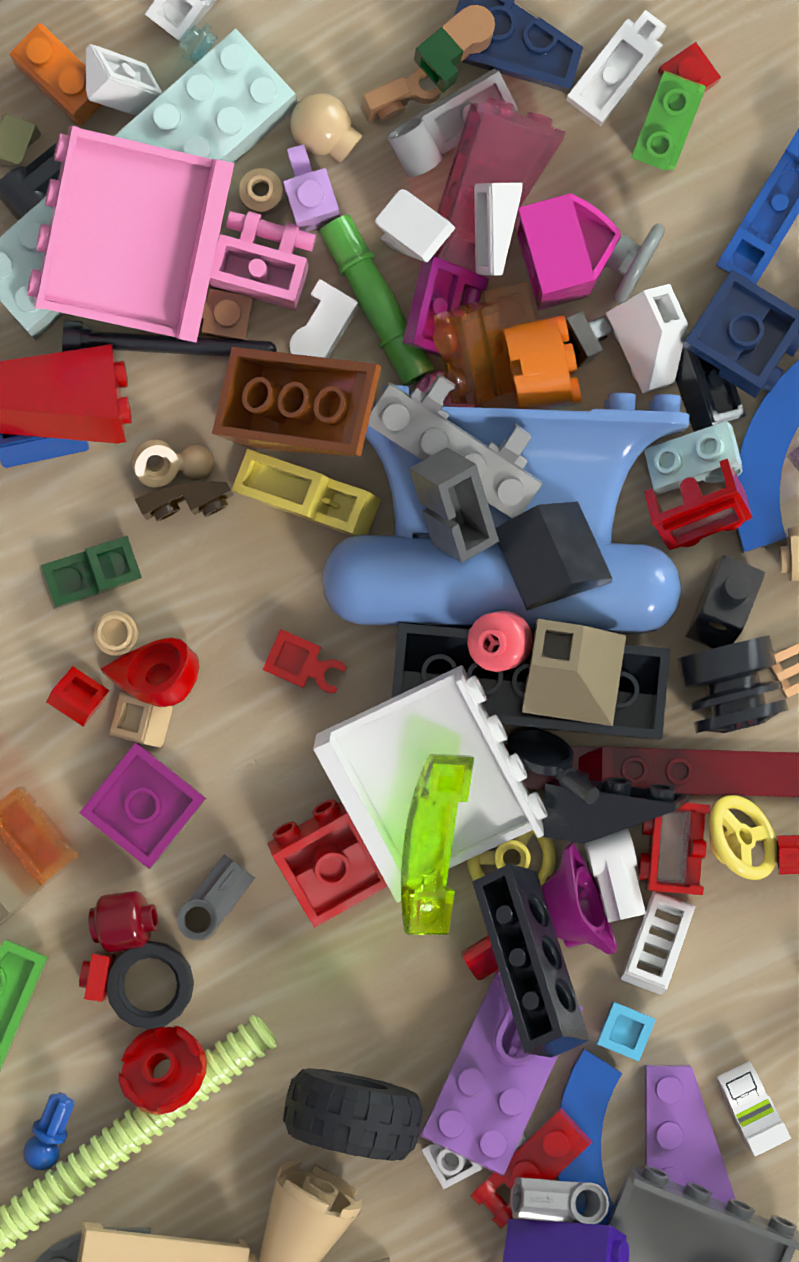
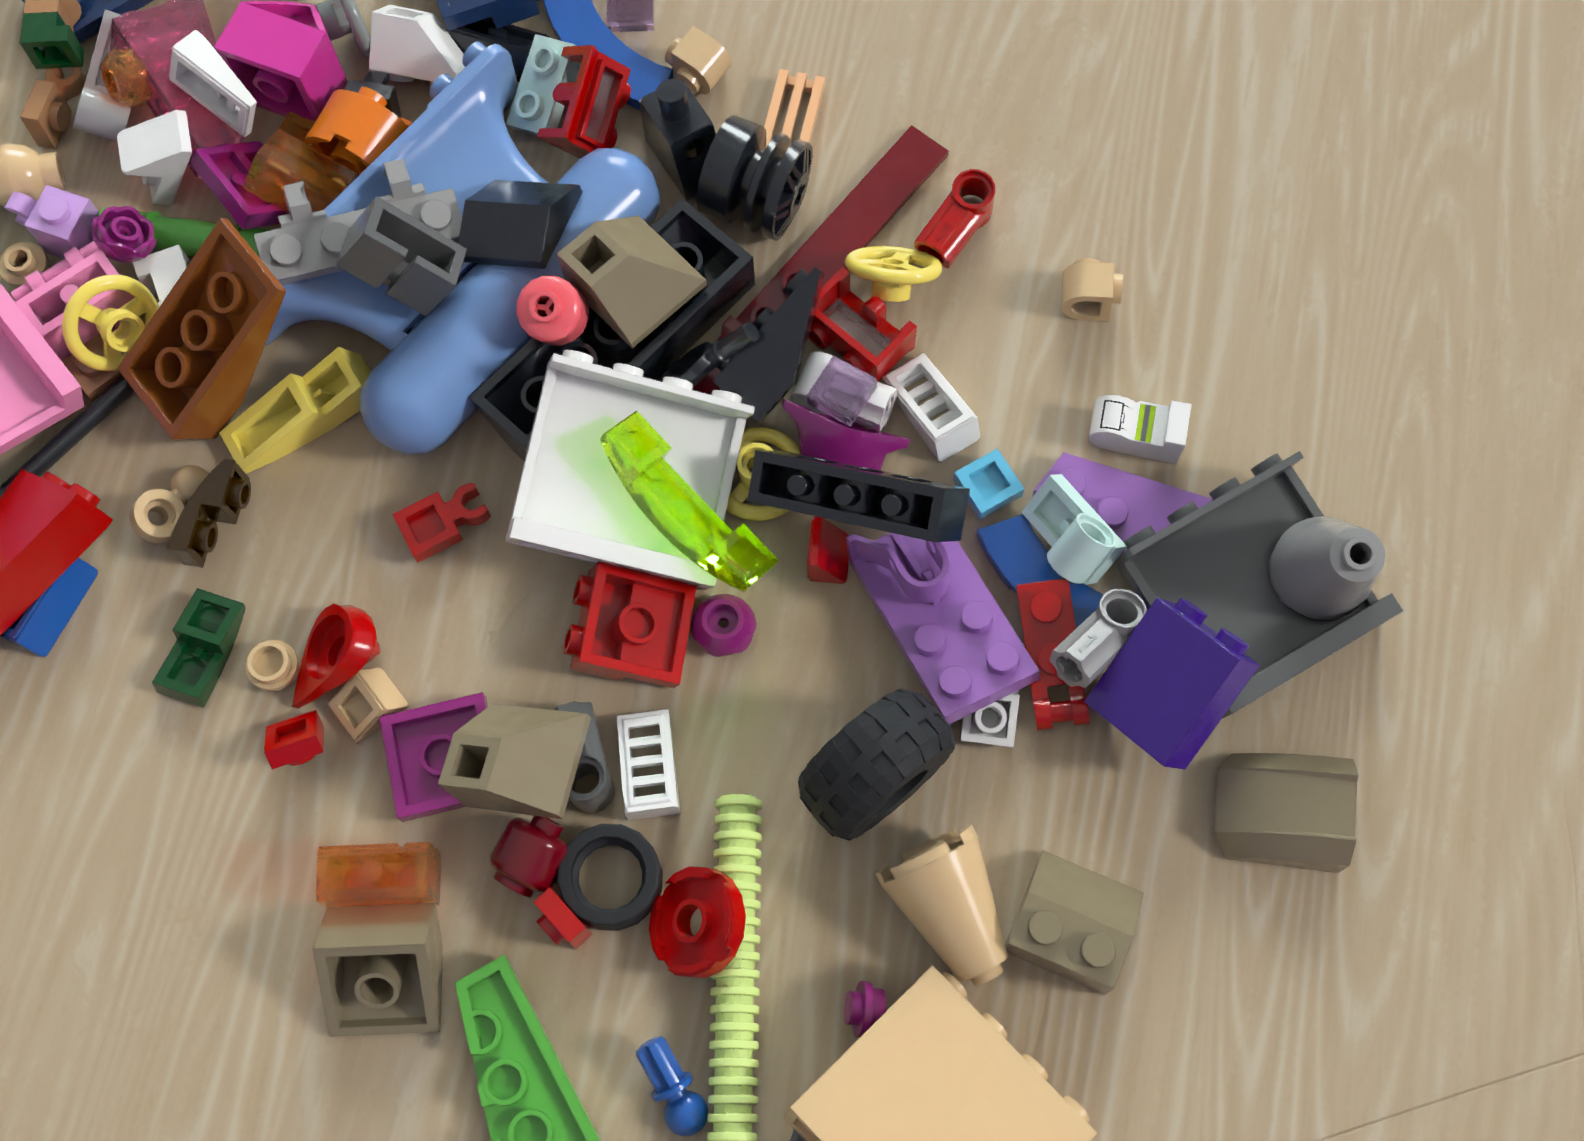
camera: 50 degrees left, 15 degrees down
(175, 869) = (516, 760): none -> dark tan slope
(192, 1220) = (864, 1007): none -> magenta plate
(217, 975) = (655, 804): none -> white slope
(260, 325) = (118, 340): none -> light yellow piece
(343, 264) = (123, 234): none -> magenta plate
(366, 925) = (727, 640): none -> magenta plate
(451, 148) = (125, 77): none -> clear orange plate
(608, 881) = (841, 391): none -> clear purple tile
(627, 1130) = (1079, 537): none -> light aqua plate

